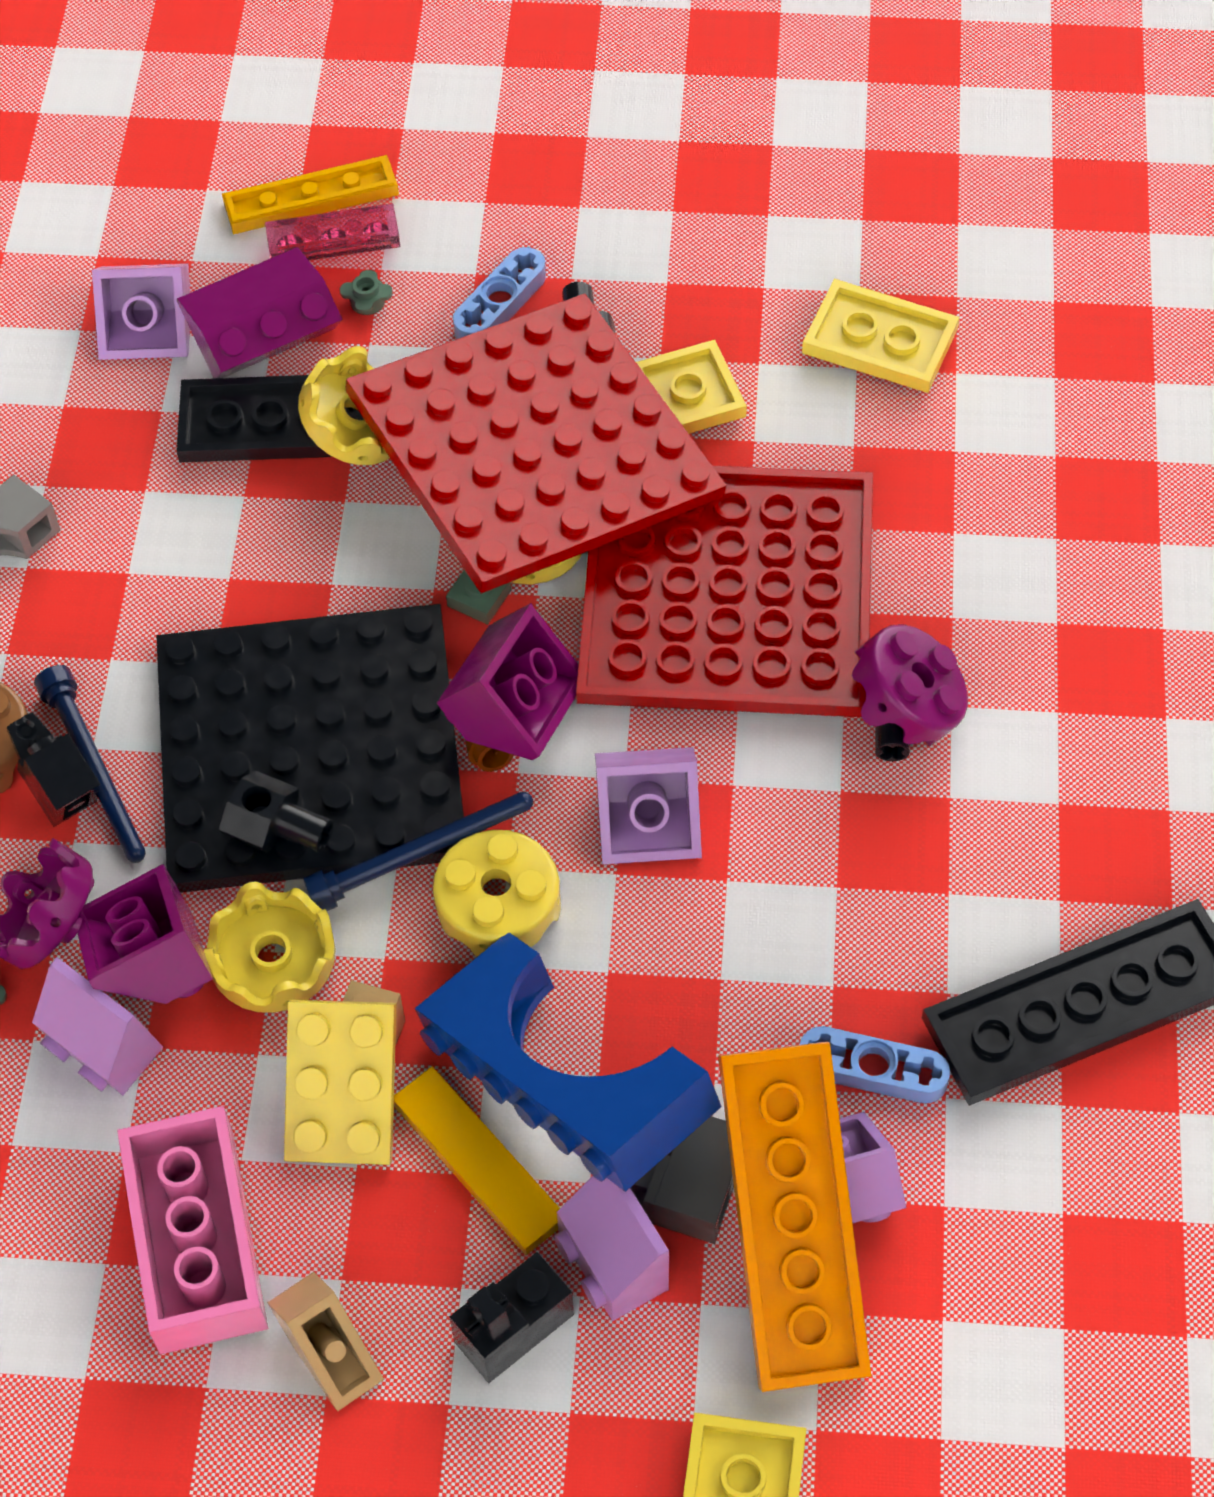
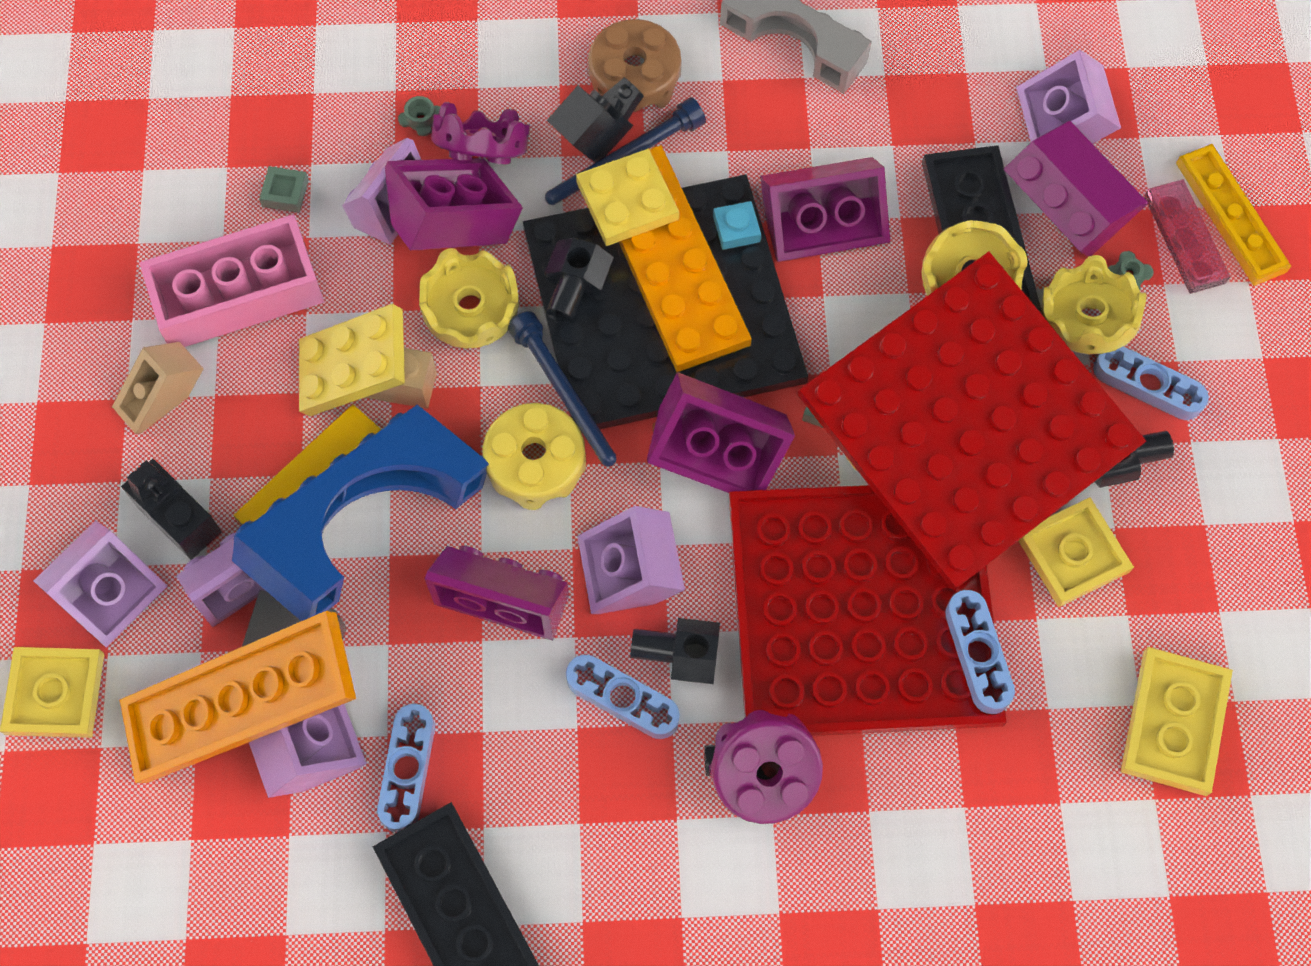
camera: 80 degrees right, 10 degrees up
(52, 1170) = (284, 189): none -> sand green plate
(180, 741) = (627, 197): none -> light yellow plate
(222, 556) = (826, 208): none -> magenta slope
(233, 643) = (737, 225): none -> medium azure plate
(259, 719) = (684, 284): none -> light orange plate
(406, 300) = (1093, 288): none -> light yellow plate
(597, 1416) = (100, 583): none -> lavender slope
(671, 937) = (498, 591): none -> magenta slope
(758, 768) = (671, 646): none -> black piece
(784, 494) = (958, 625): none -> light blue beam
(807, 853) = (655, 703): none -> light blue beam

